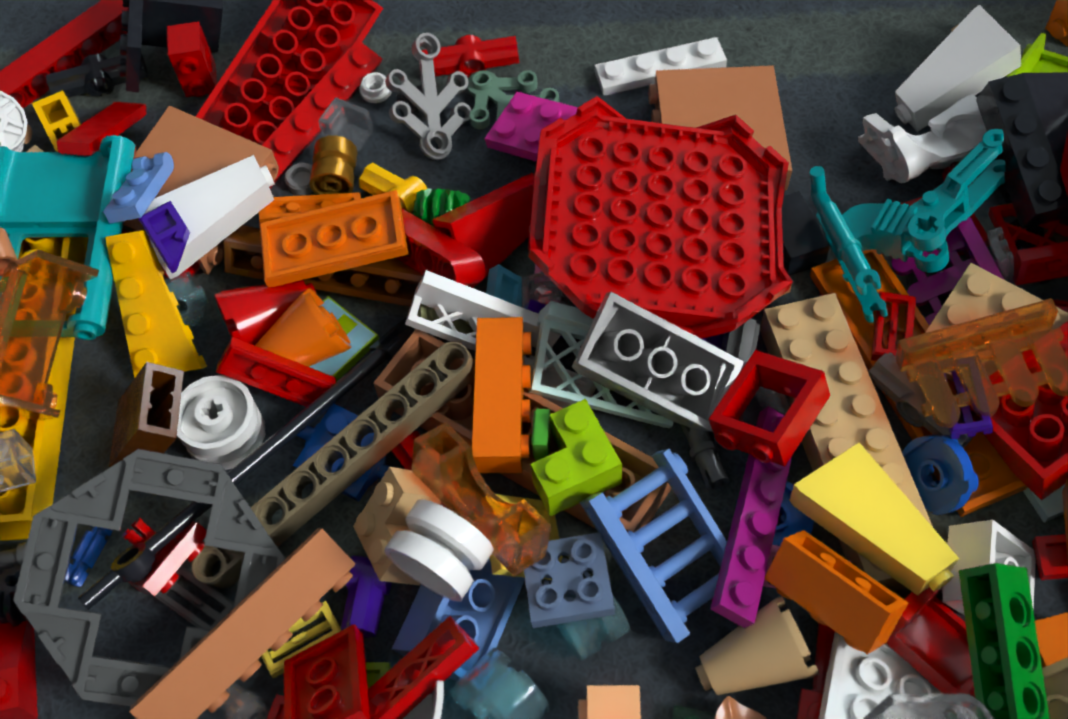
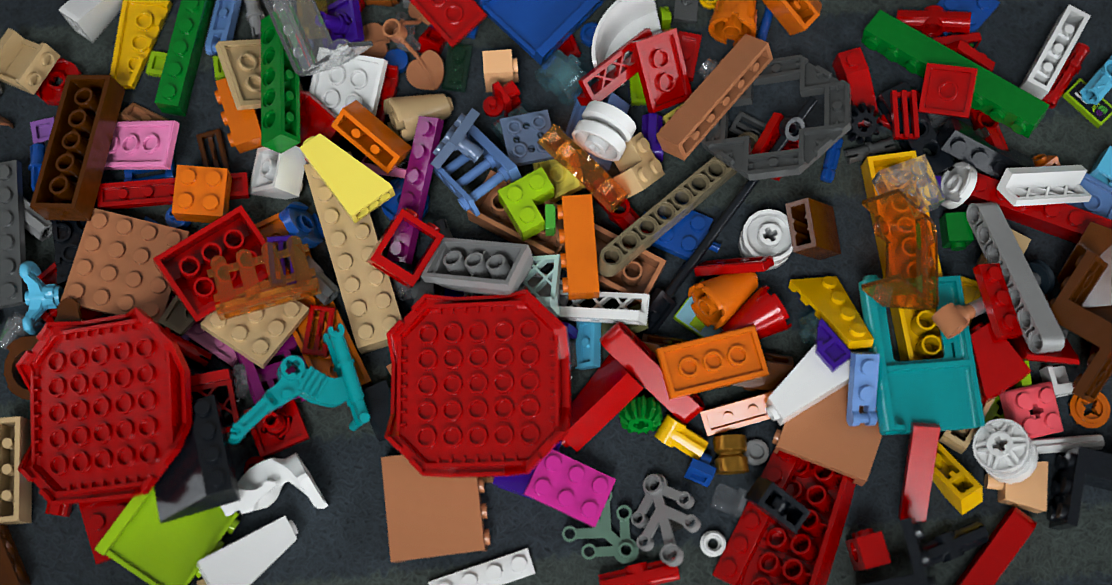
camera: 170 degrees right, 15 degrees up
(287, 91) = (777, 504): none -> black brick
(374, 153) = (701, 470): none -> blue tile
(610, 664) = (503, 98): none -> red hips
(687, 561) = (456, 139): none -> sand blue plate

